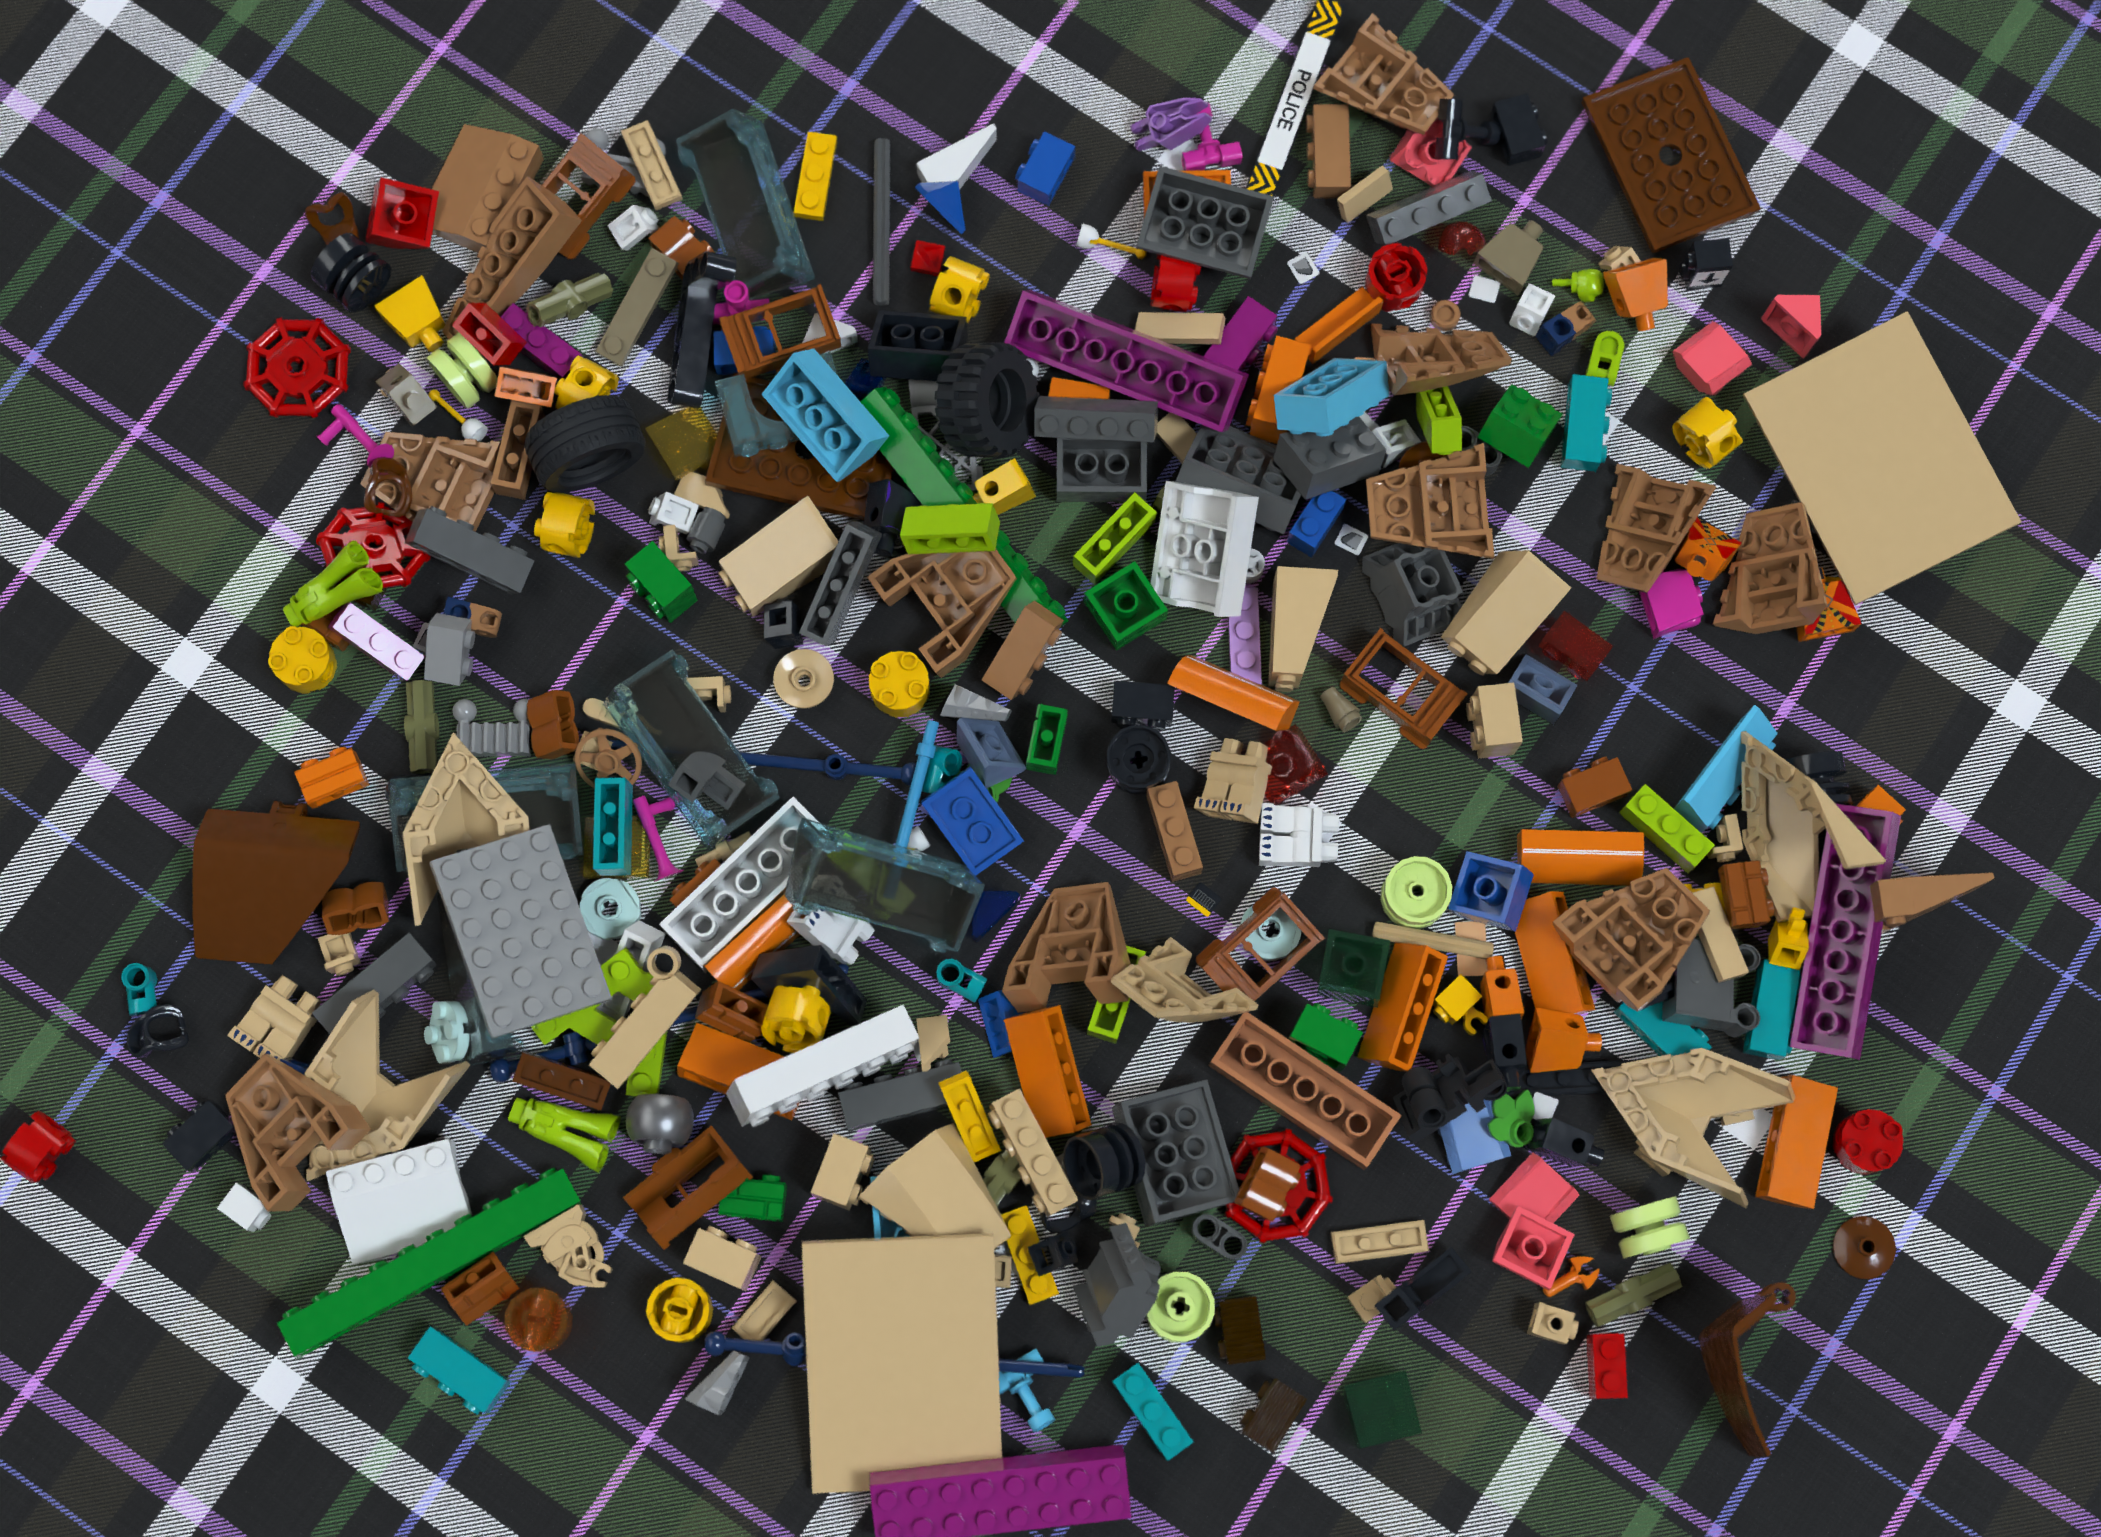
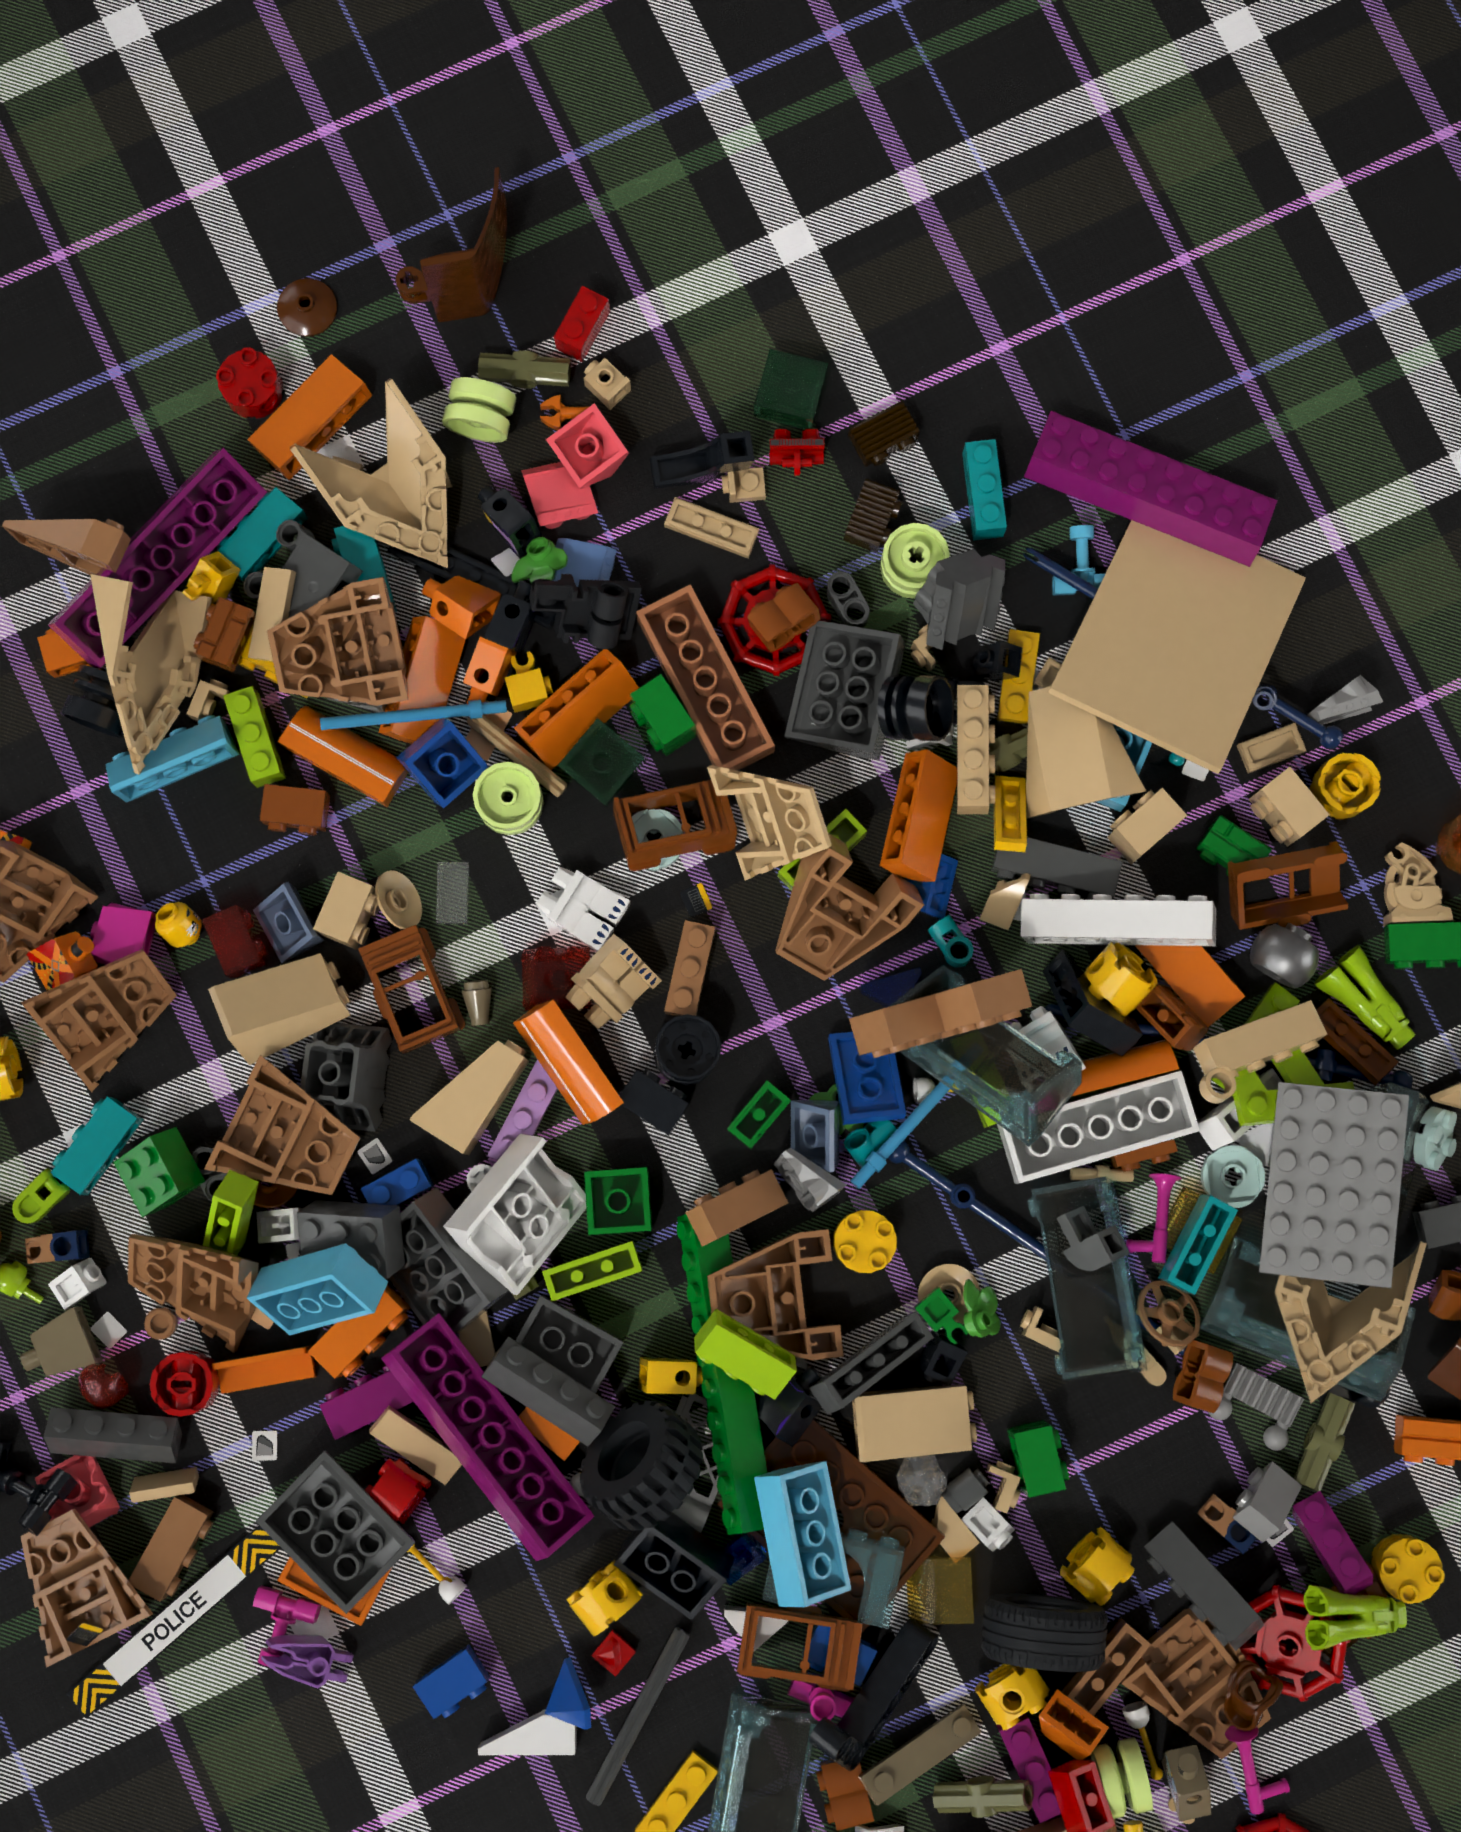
camera: 150 degrees left, 5 degrees up
(747, 514) = (921, 1480): none -> clear brick
(770, 679) = (982, 1307): none -> bright green plate
(805, 657) = (939, 1312): none -> green plate
(929, 900) = (941, 1015): none -> medium nougat brick
(1342, 1350) = (796, 452): none -> red hips
(1358, 51) = (84, 1634): none -> black sticker
(1416, 790) = (452, 892): none -> clear tile
(1458, 755) = (398, 899): none -> tan dish
(1492, 952) = (473, 709): none -> dark azure bar
(1631, 634) = (178, 924): none -> yellow head

